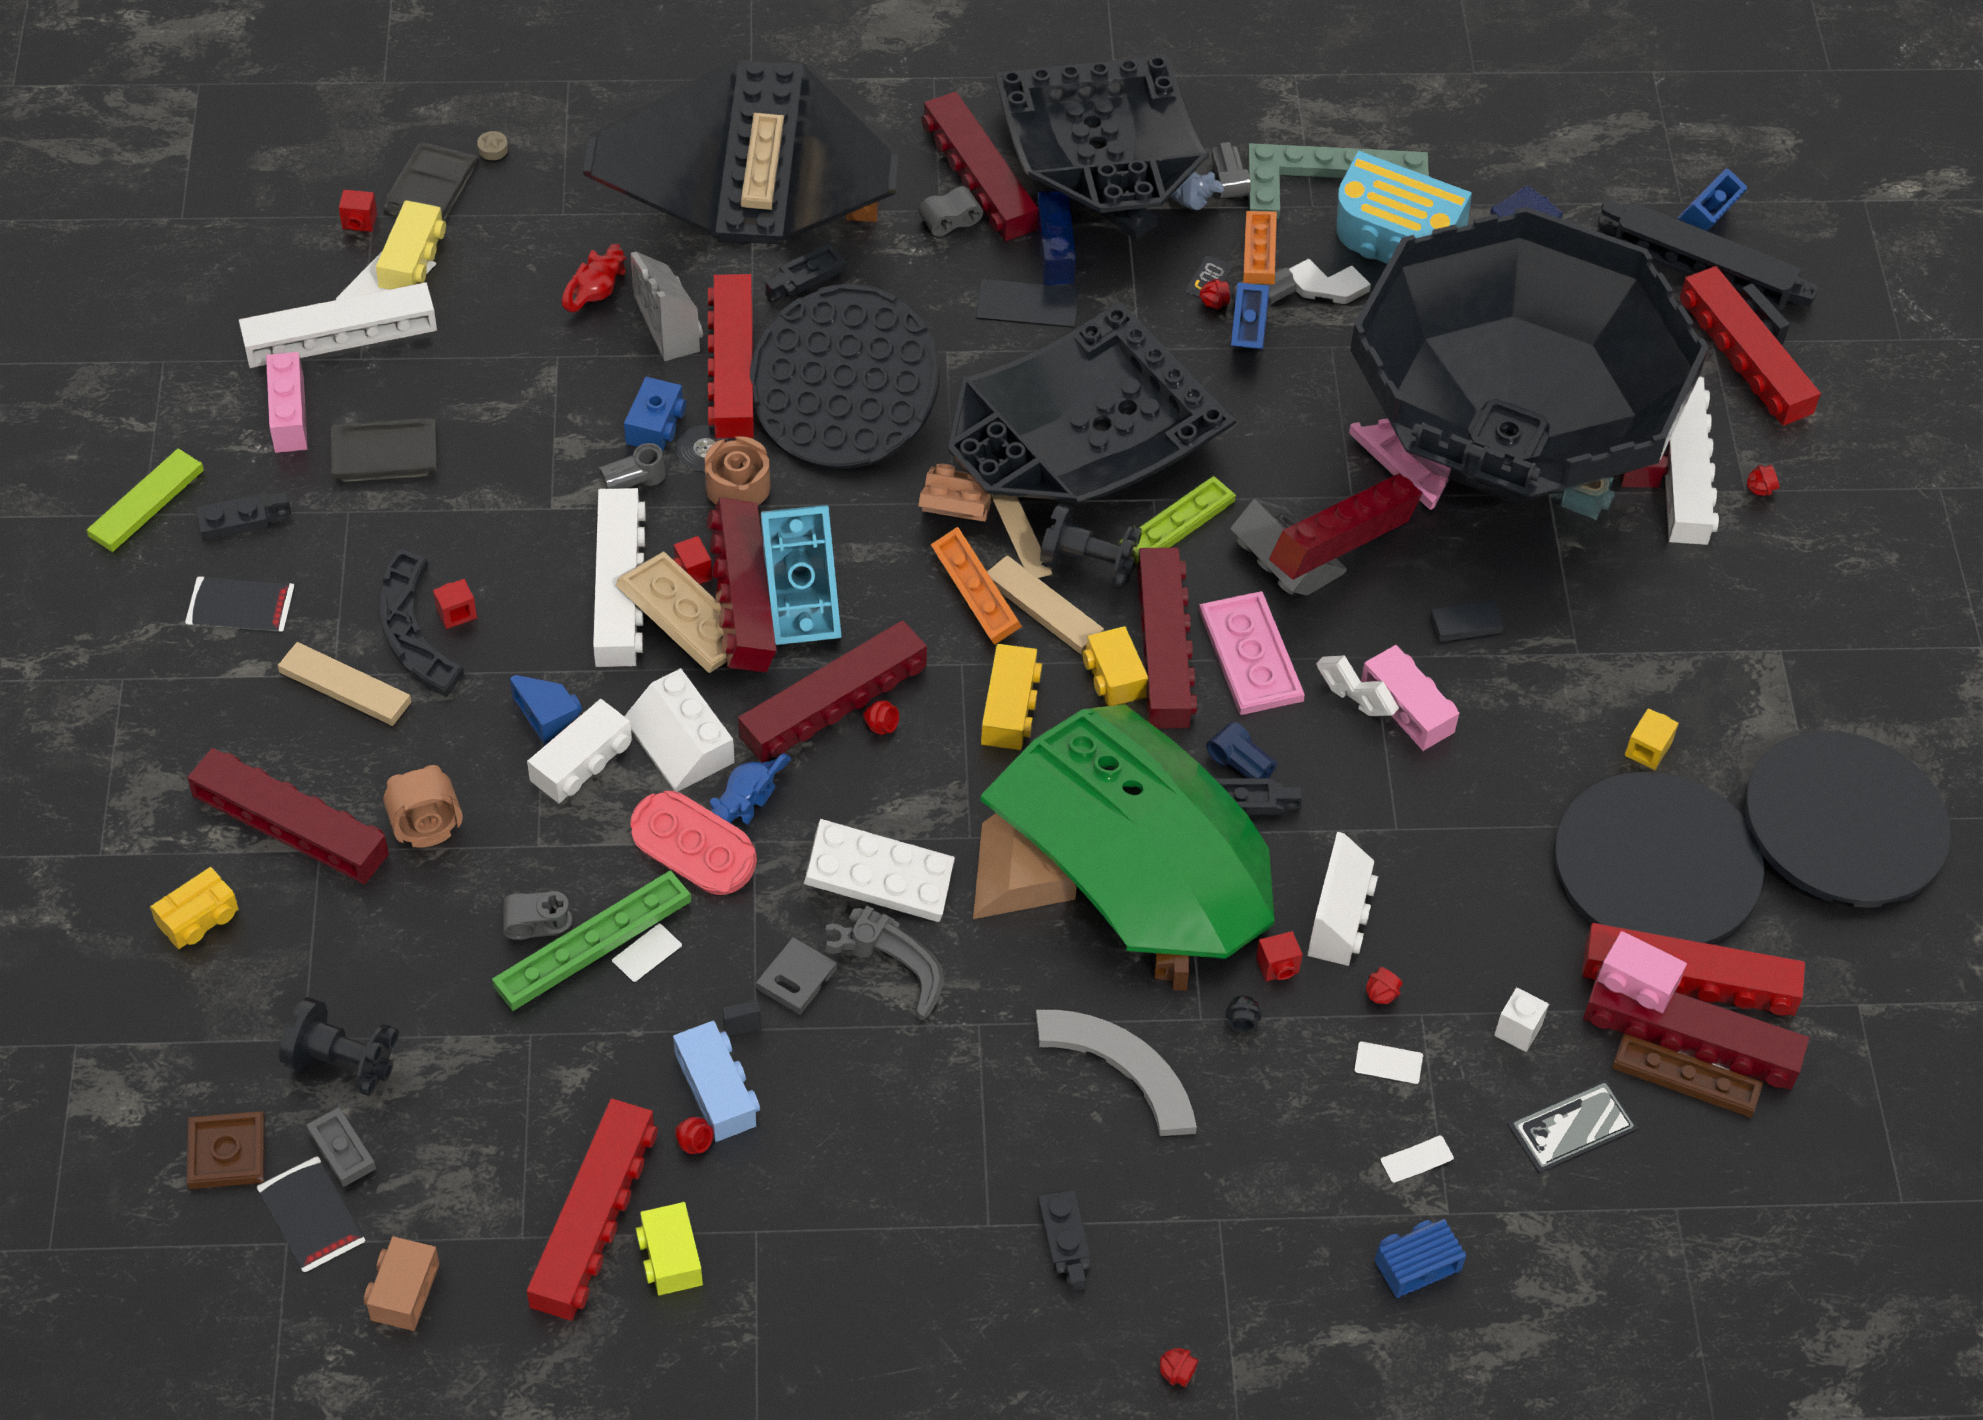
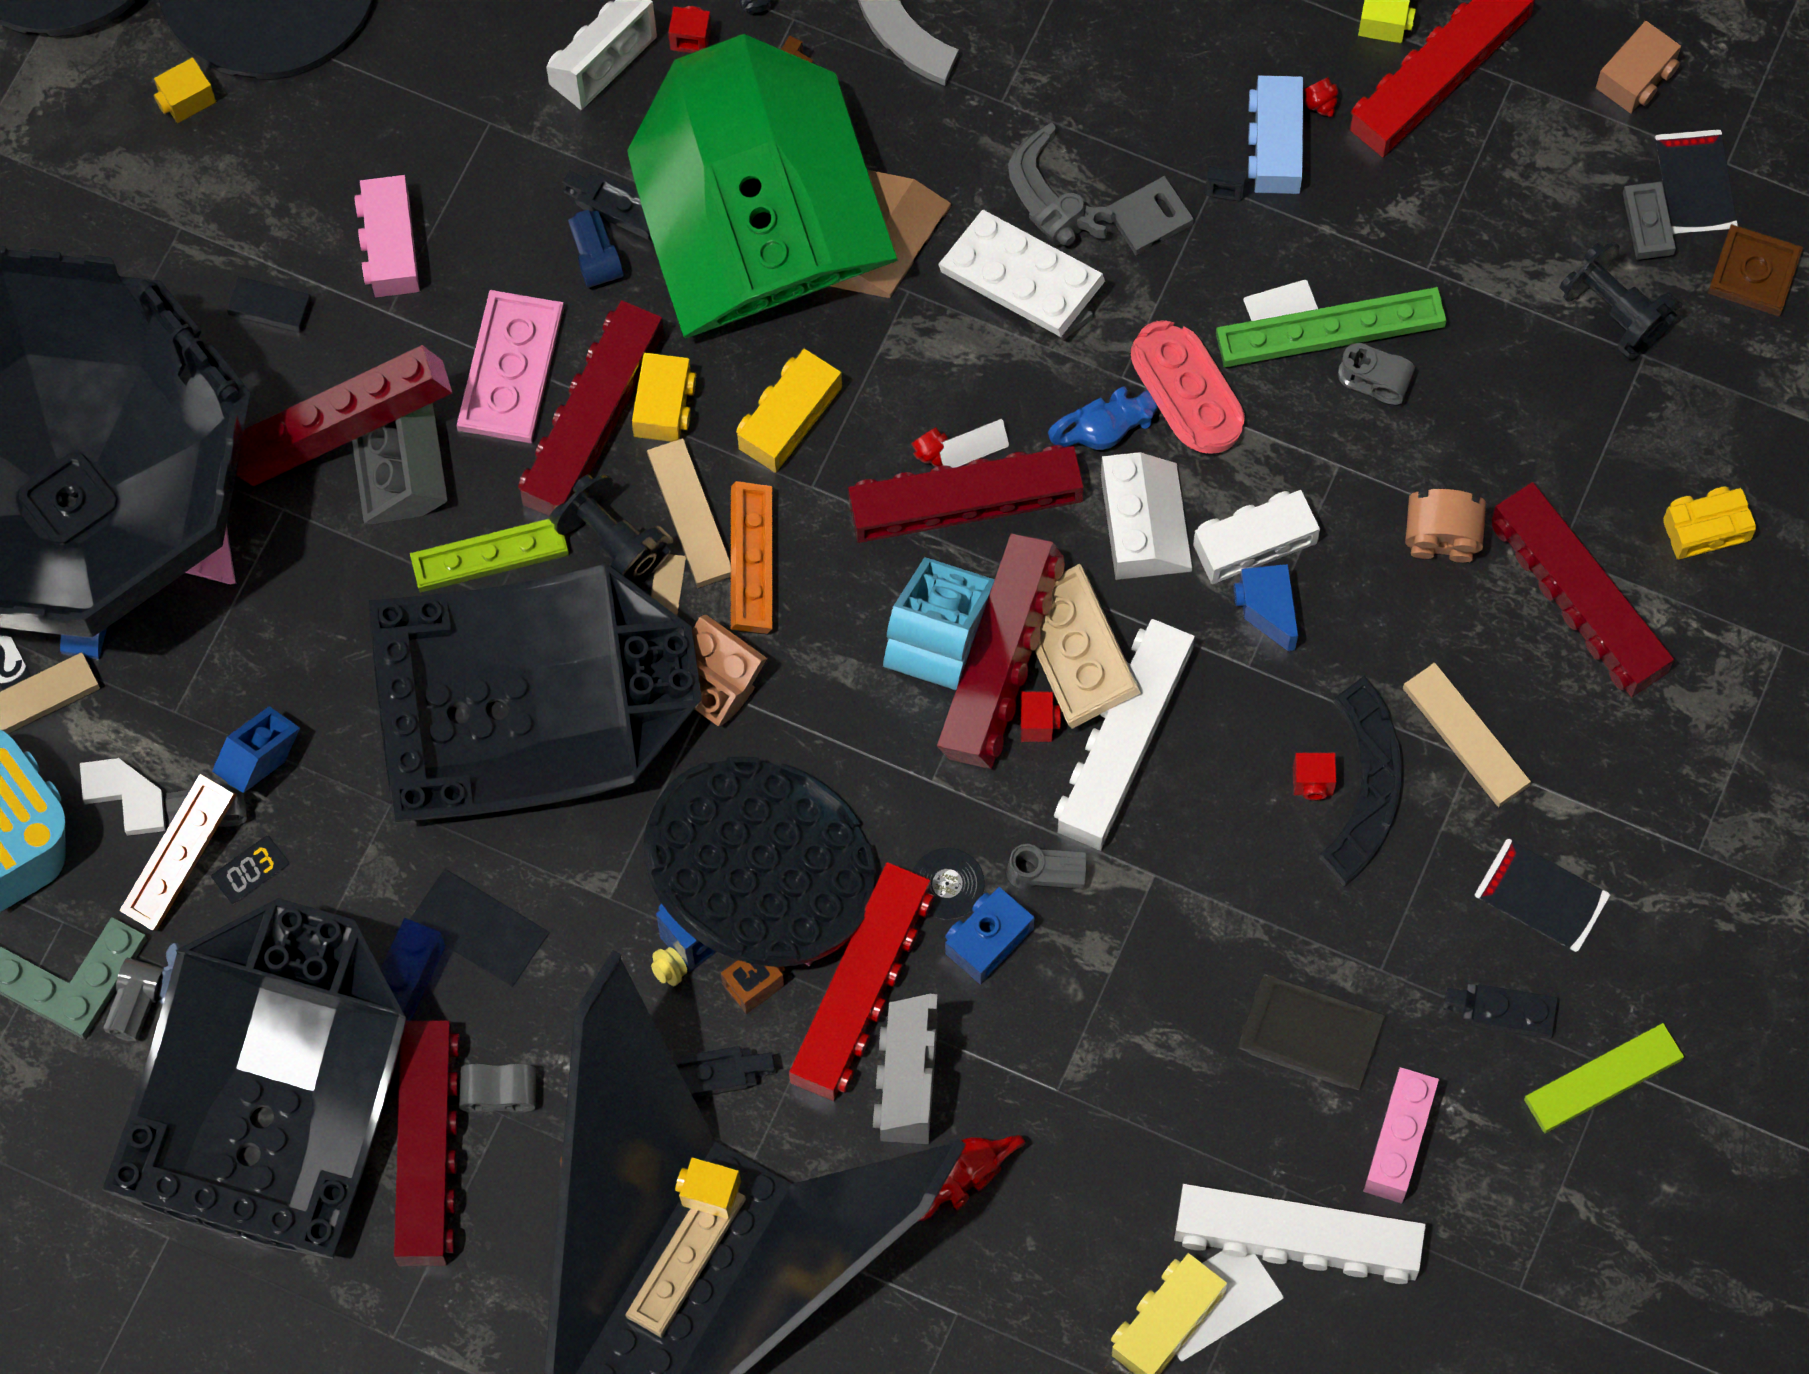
camera: 150 degrees left, 15 degrees up
(737, 471) = (934, 821): nougat brick -> none
(765, 181) = (708, 1187): none -> yellow brick
(846, 732) = (974, 444): none -> white sticker
(1215, 294) = (263, 827): red plate -> none
(1342, 679) = (438, 269): white tile -> none

